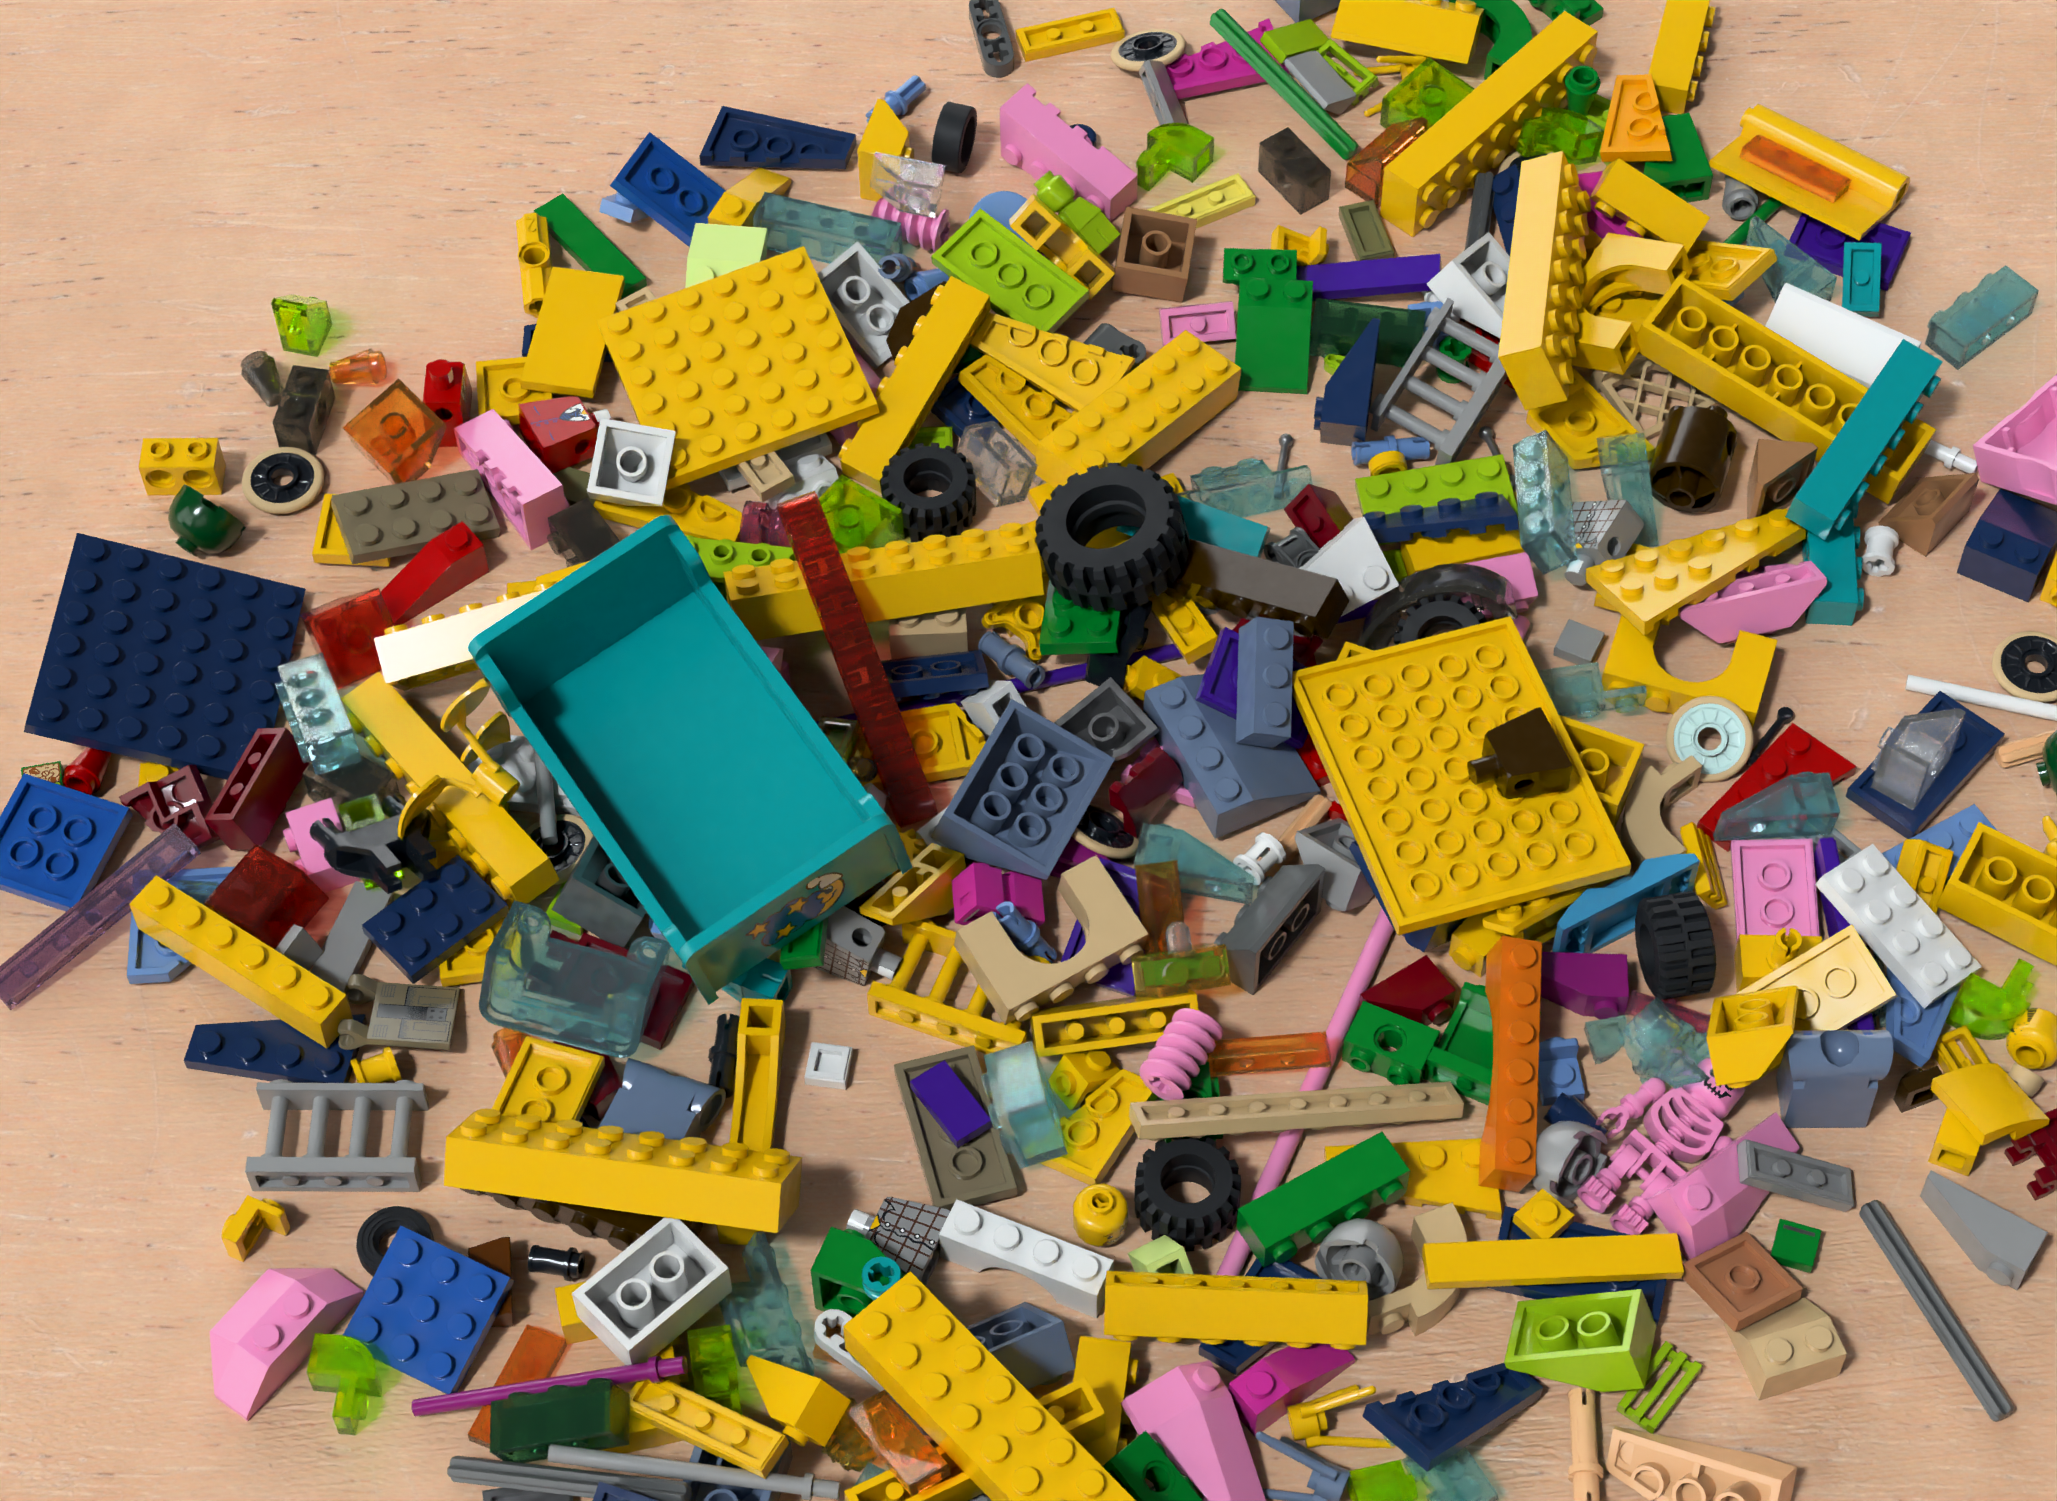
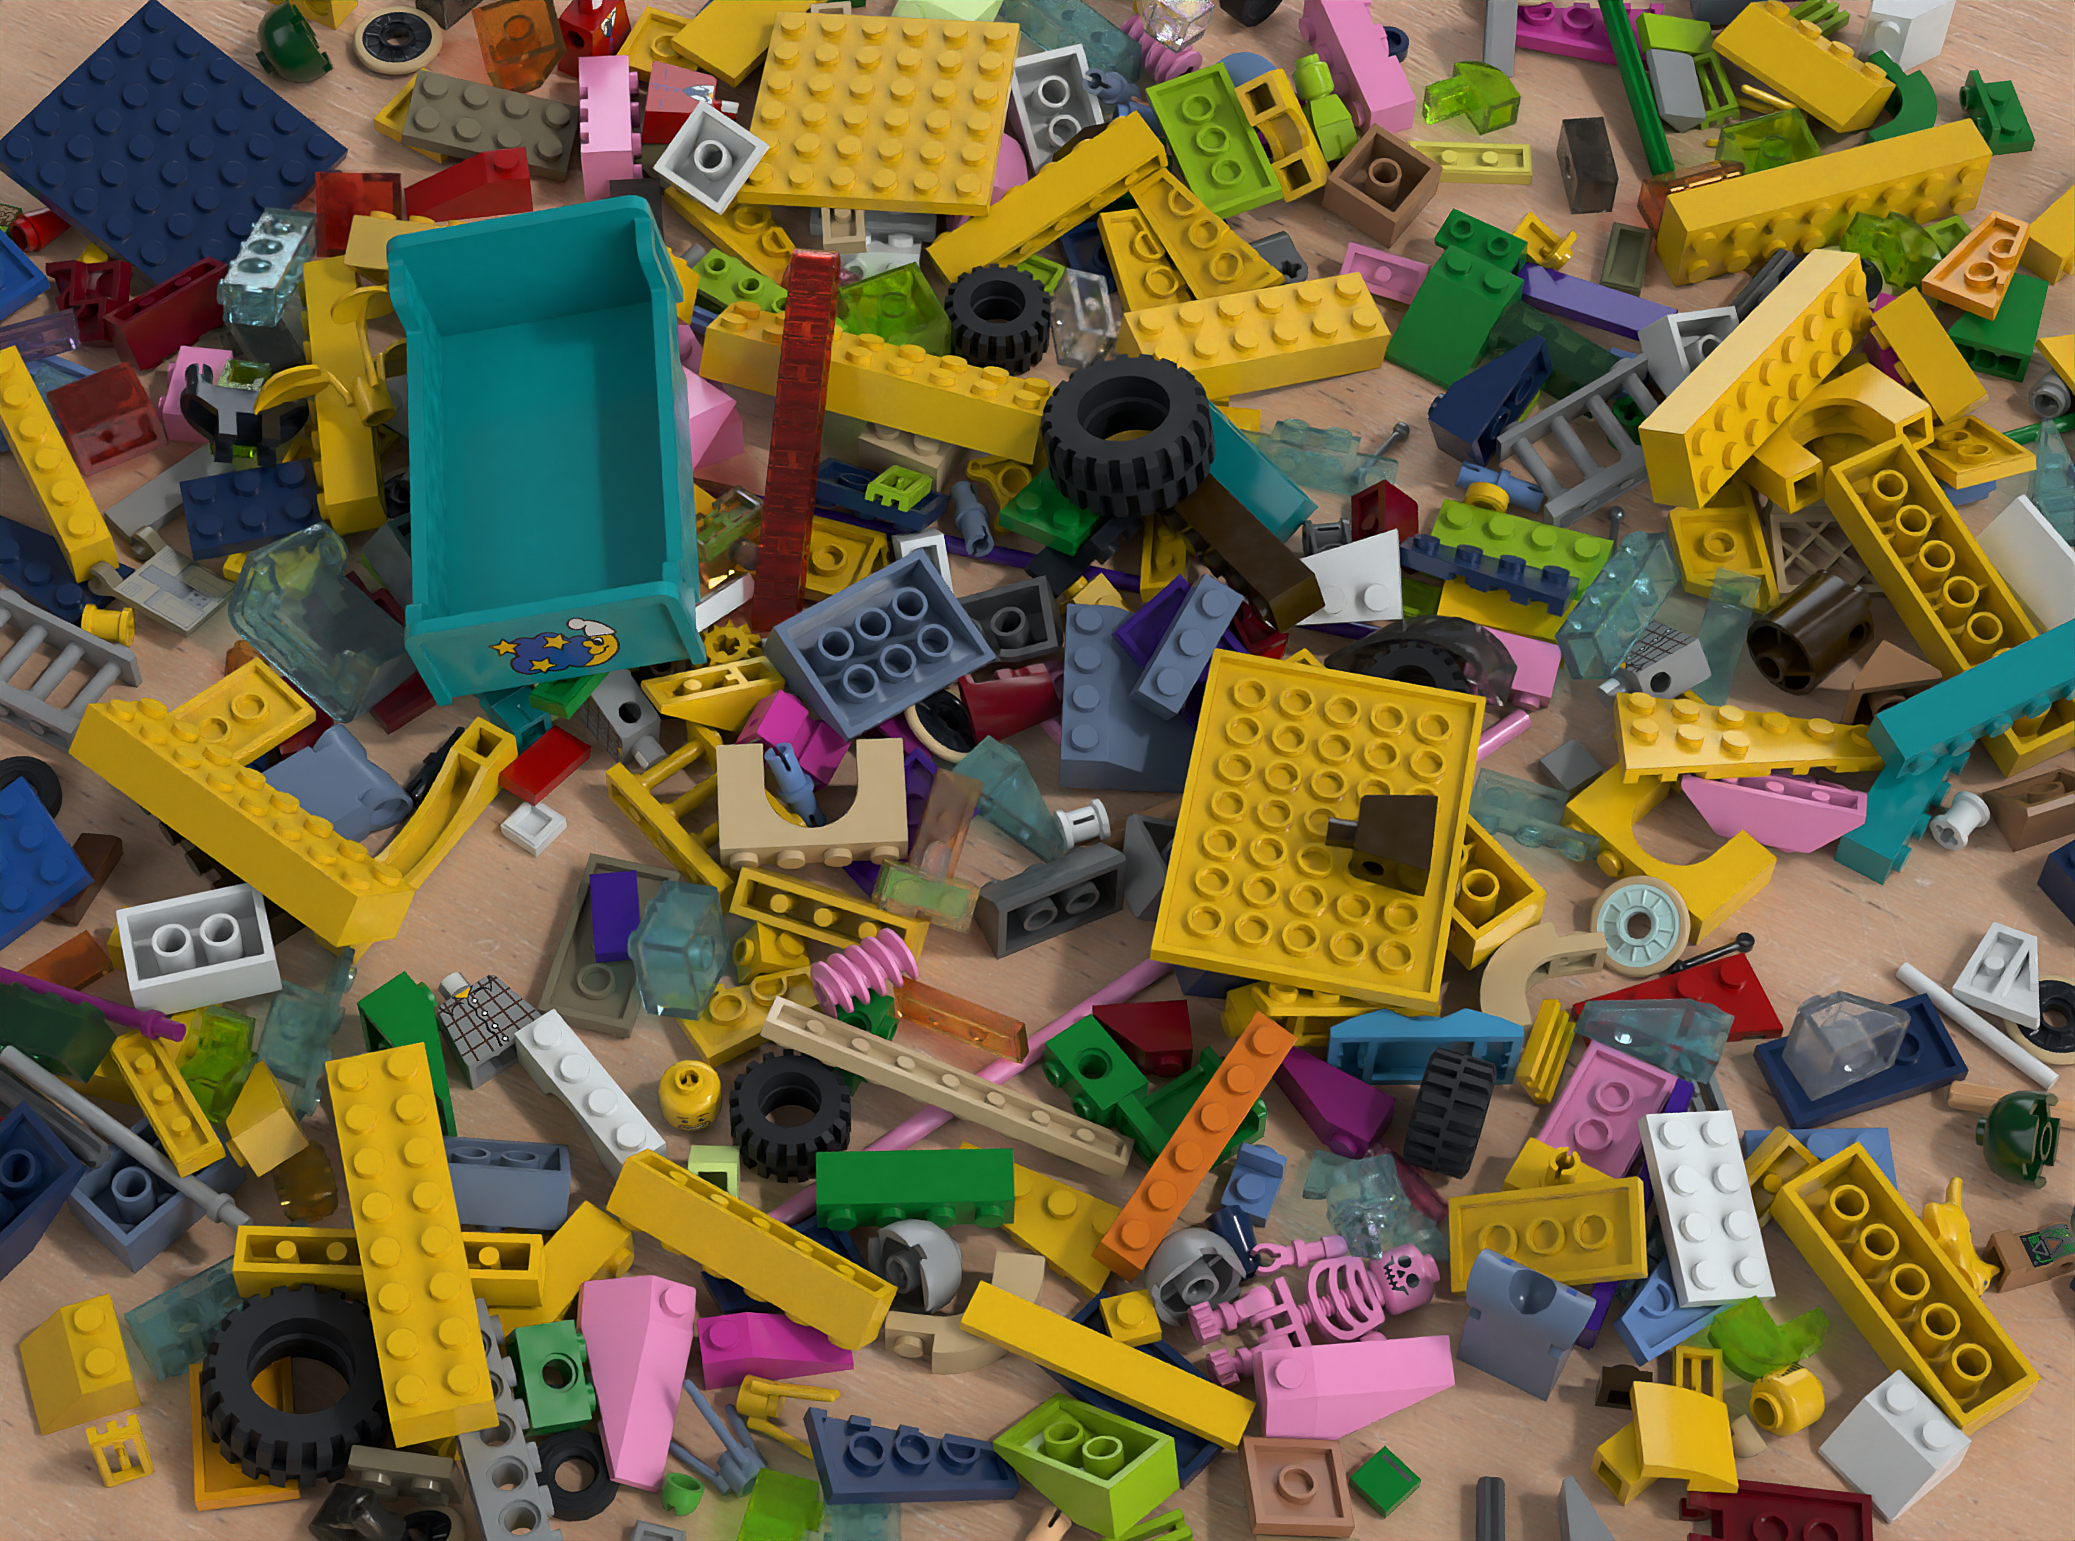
camera: 25 degrees right, 0 degrees up
(300, 947) = (107, 480): light grey tile -> none
(557, 1262) = (150, 882): black pin -> none
(808, 1013) = (544, 765): none -> red tile
(887, 1267) = (415, 1028): teal bush -> none
(898, 1443) = (318, 1207): clear orange tile -> none
(949, 666) = (908, 490): none -> lime tile
(1581, 89) = (1941, 206): green cone -> none
(1749, 1033) = (1447, 1232): yellow slope -> none
(1795, 1175) = (1424, 1408): light grey tile -> none
(1984, 652) = (2003, 976): none -> white wing

